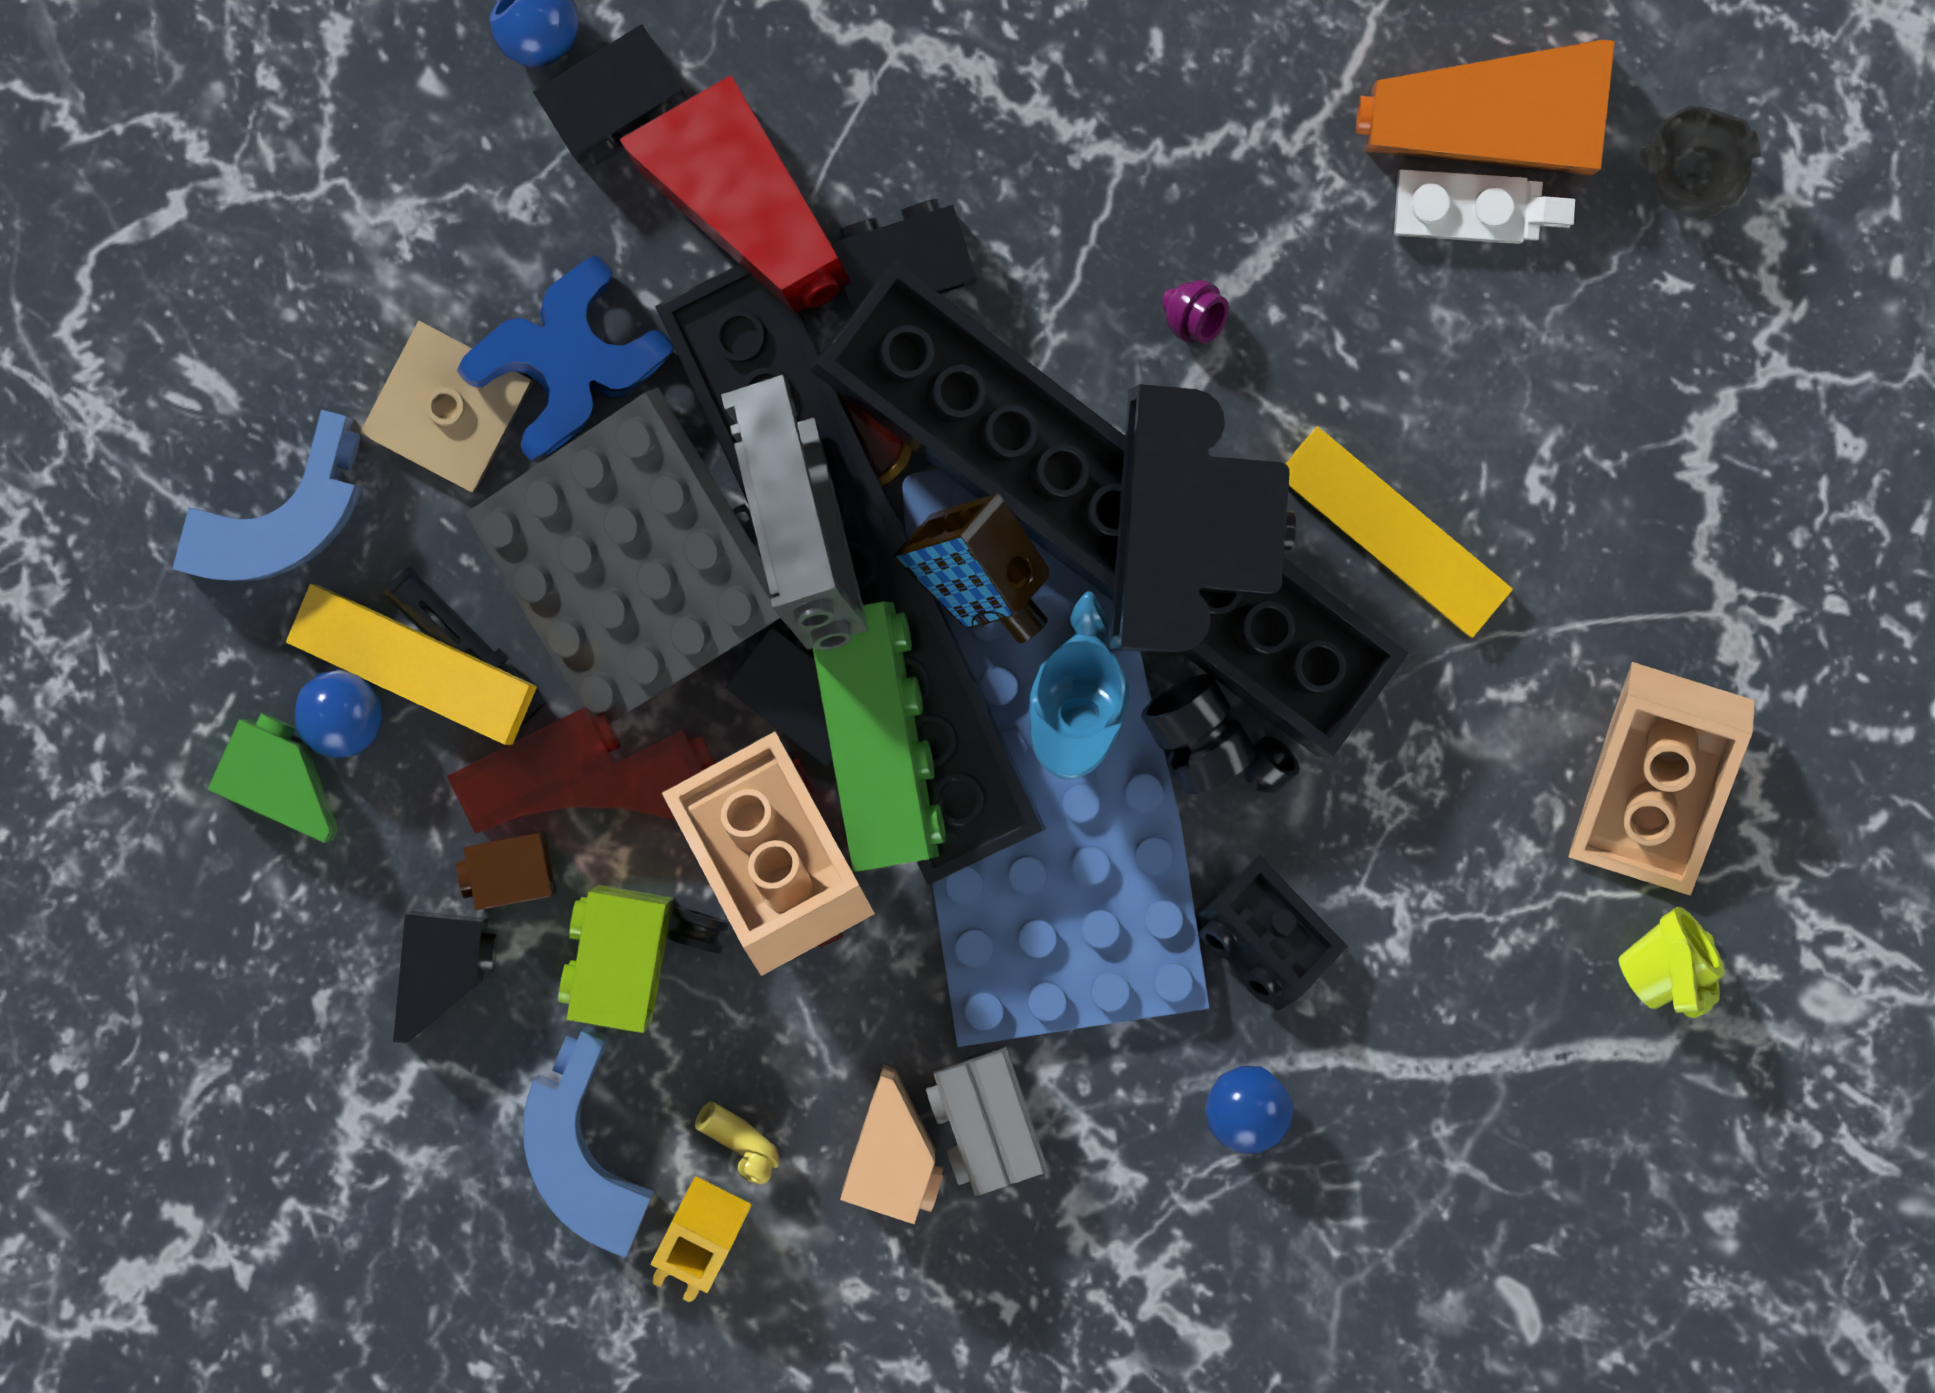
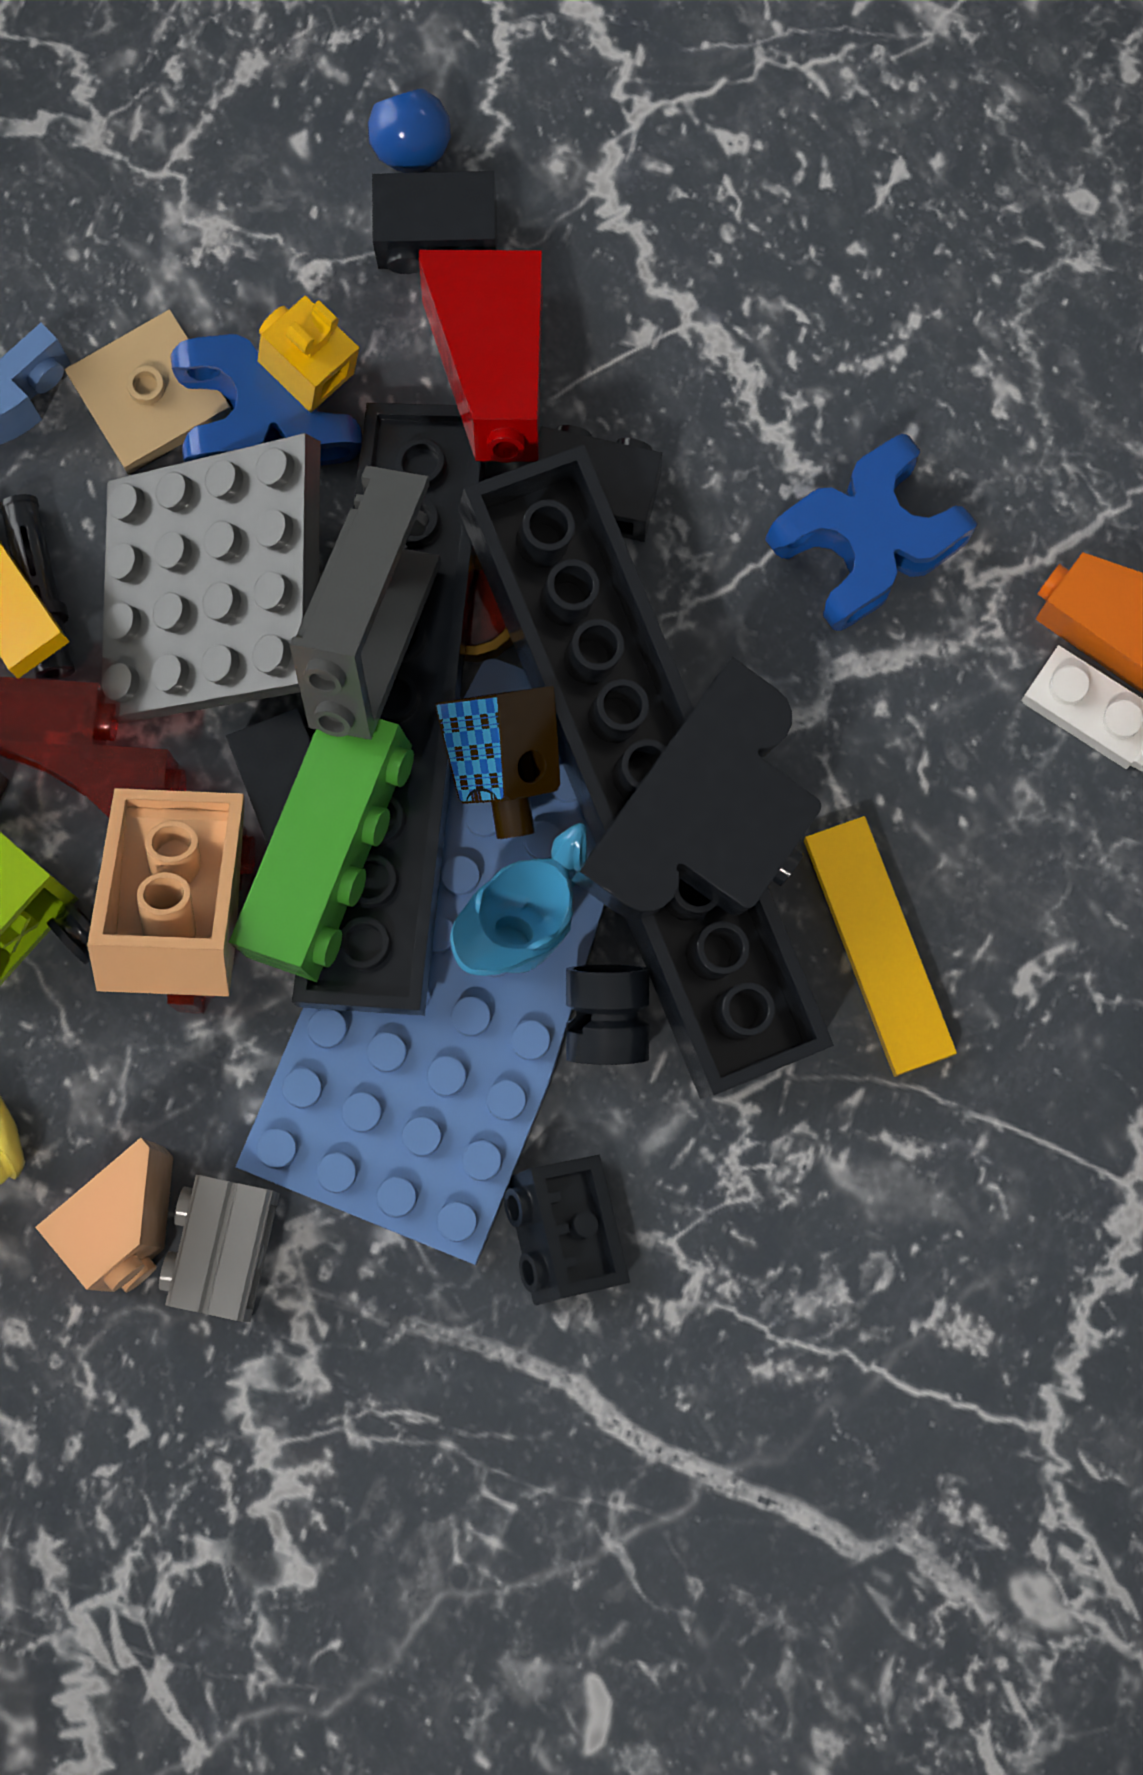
camera: 35 degrees right, 10 degrees down
(585, 304) = (307, 351): none -> yellow brick
(1177, 162) = (871, 532): none -> blue piece
(1195, 311) = (816, 662): magenta plate -> none
(1248, 1110) = (454, 1376): blue piece -> none
(1272, 766) = (655, 1082): black hinge -> none
(1663, 778) = (997, 1300): light nougat slope -> none
(1675, 964) = (915, 1474): neon yellow piece -> none

